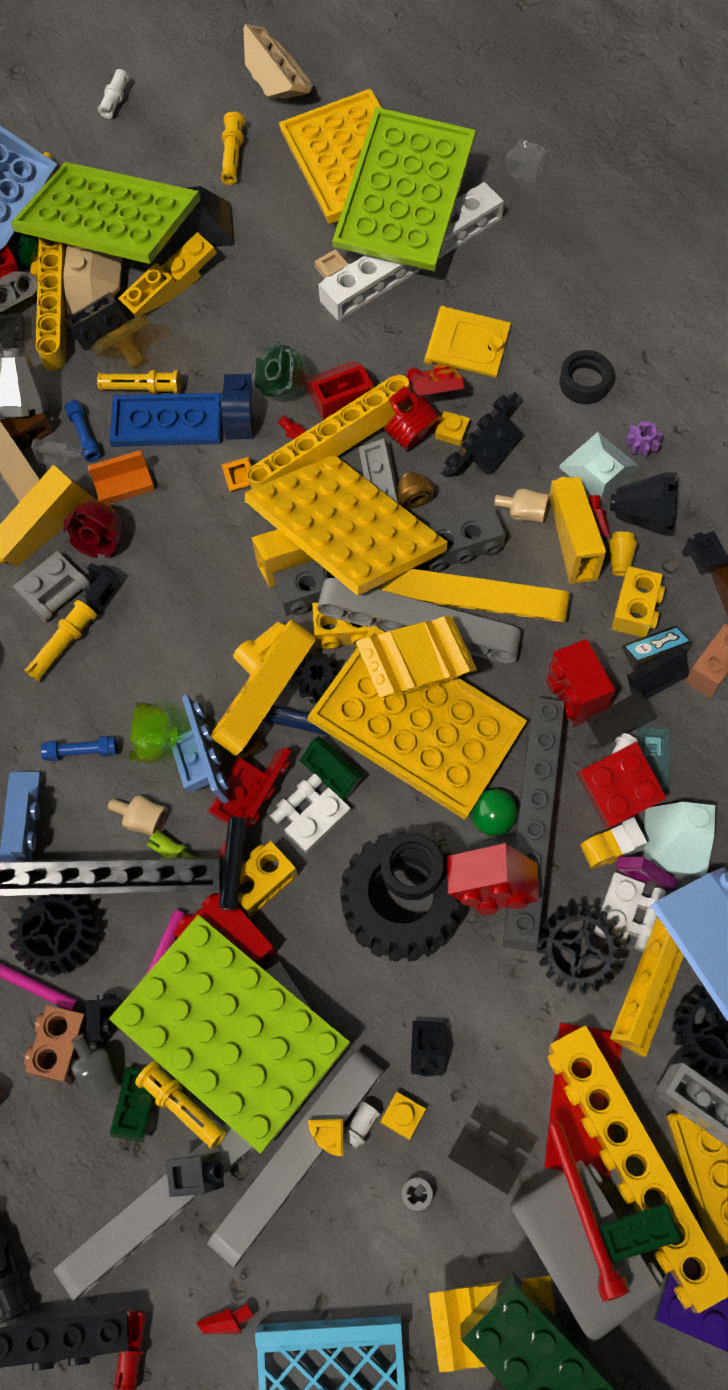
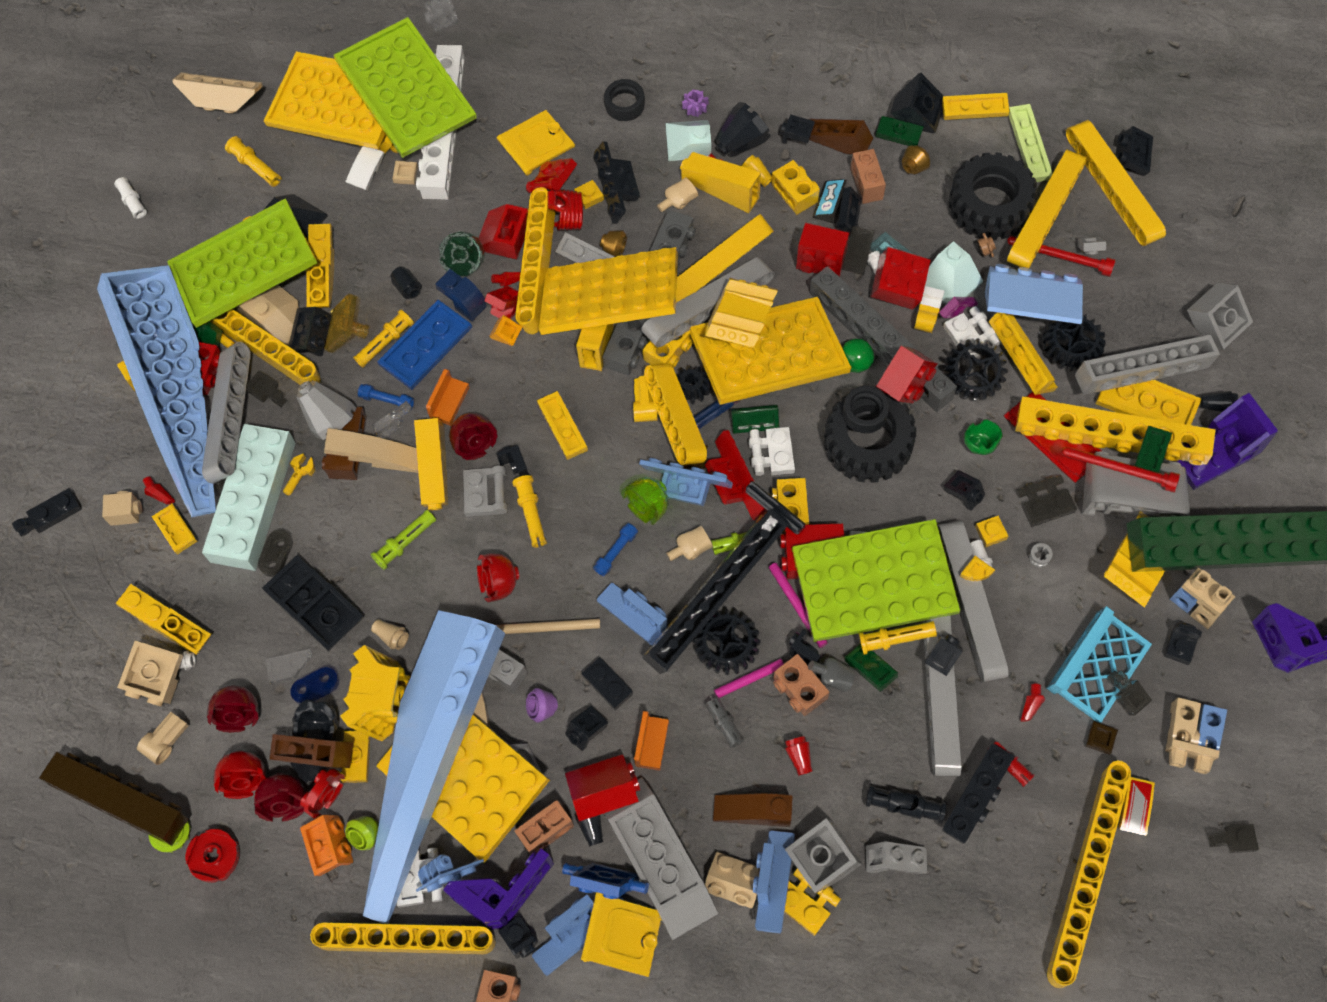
camera: 50 degrees left, 0 degrees up
(175, 598) = (562, 425): none -> yellow plate
(213, 354) = (405, 282): none -> black brick
(261, 441) = (503, 301): none -> red slope
(304, 229) = (364, 167): none -> white slope
(505, 1019) = (983, 438): none -> green hair

